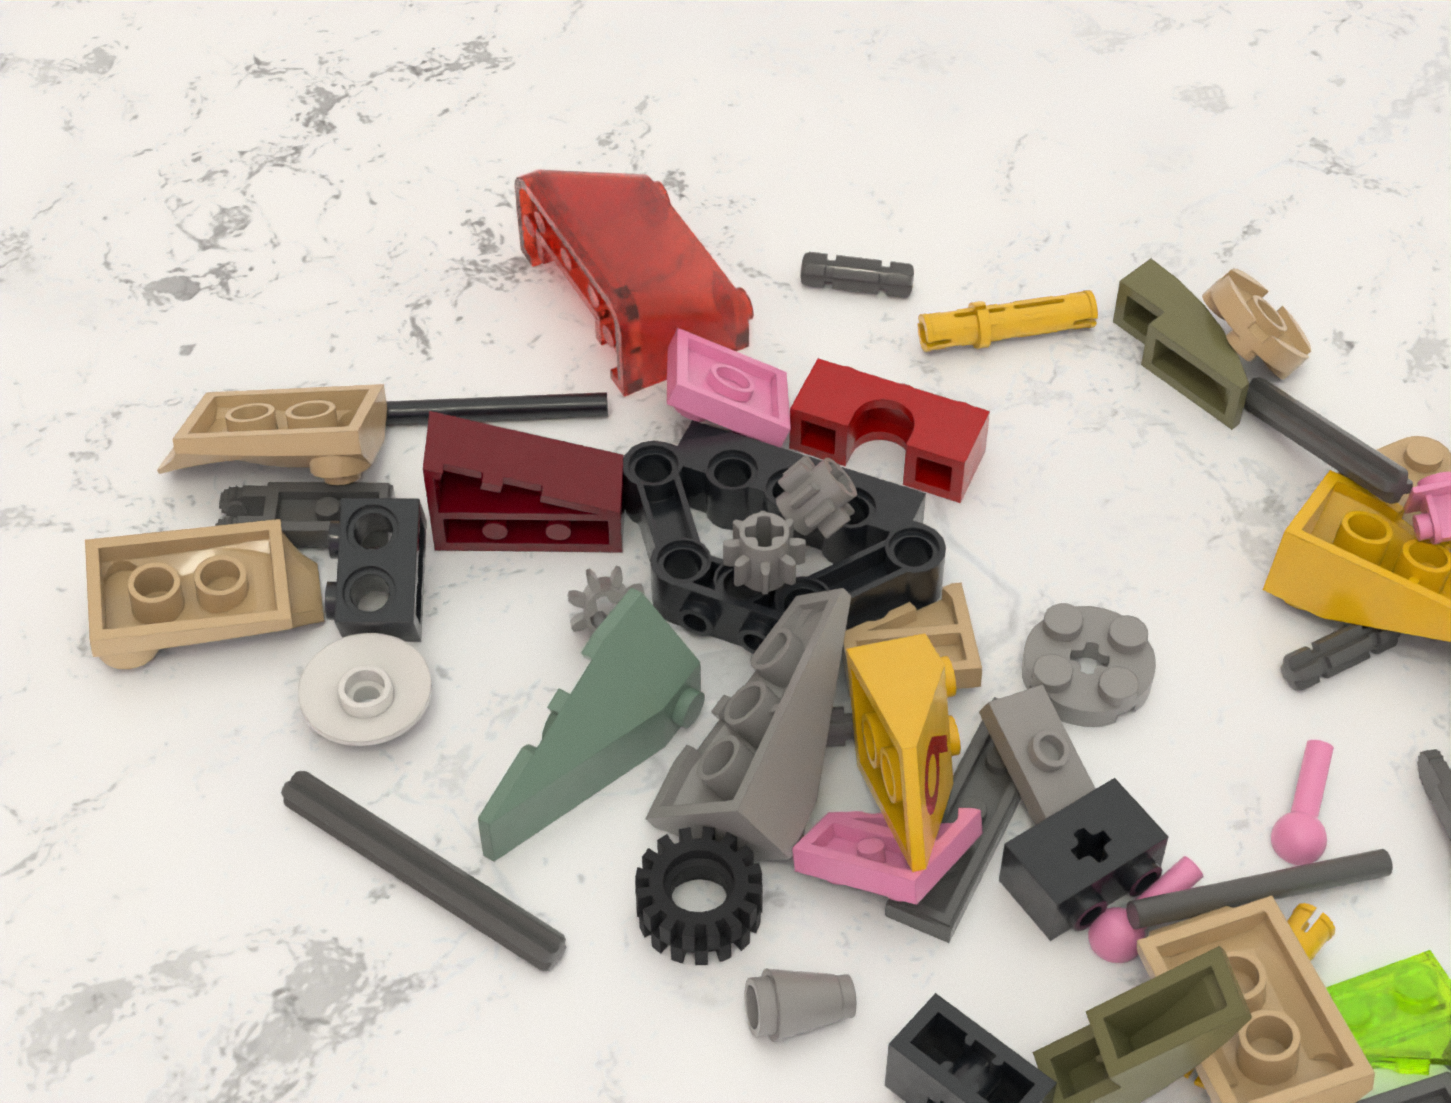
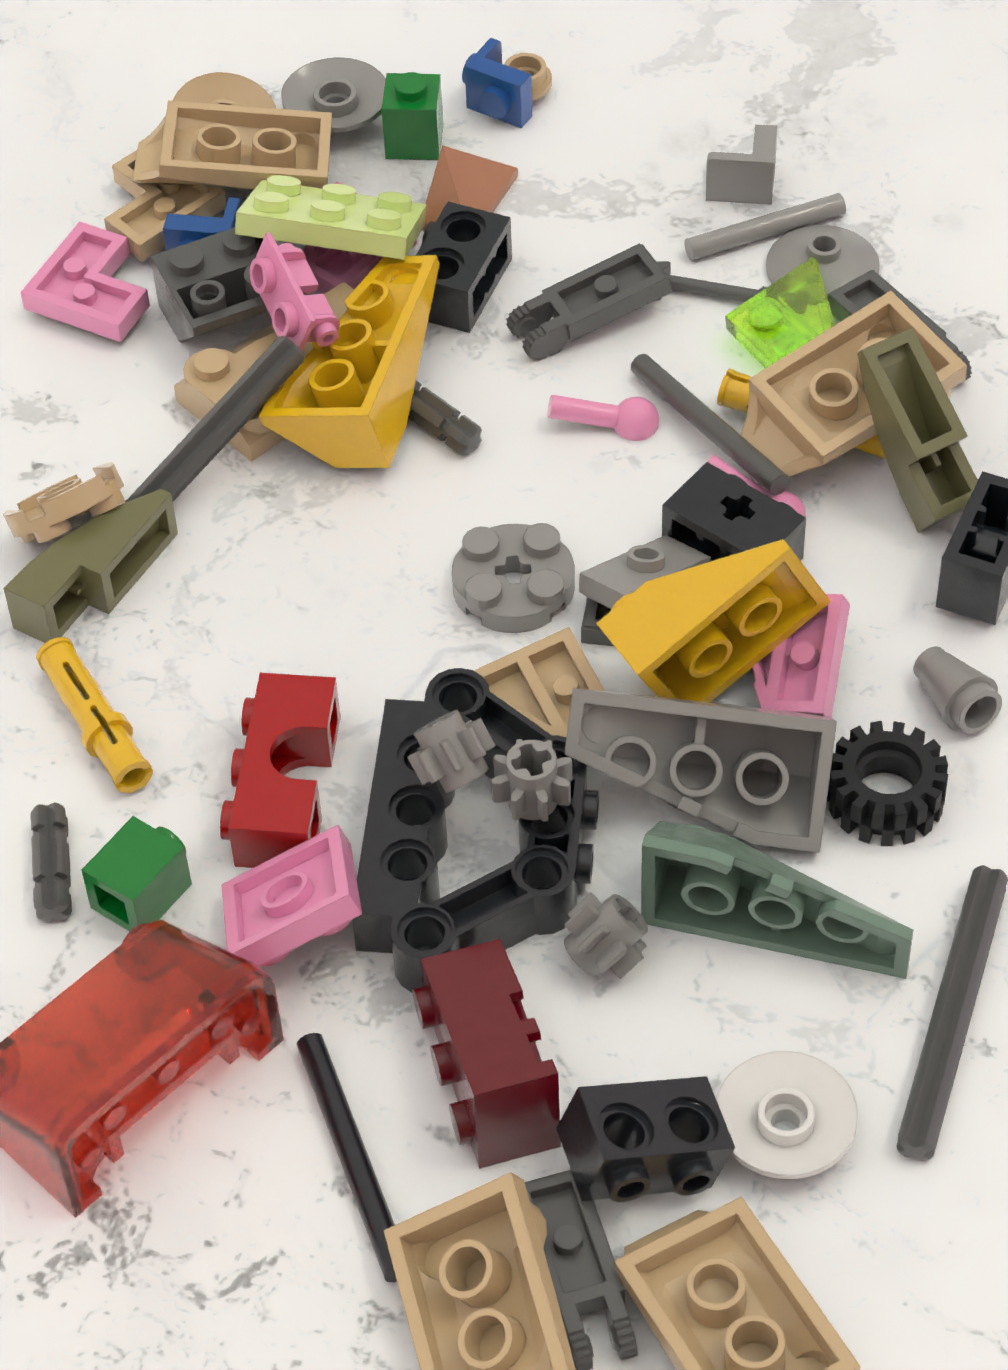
camera: 105 degrees left, 0 degrees up
(810, 314) = (137, 874): none -> green brick

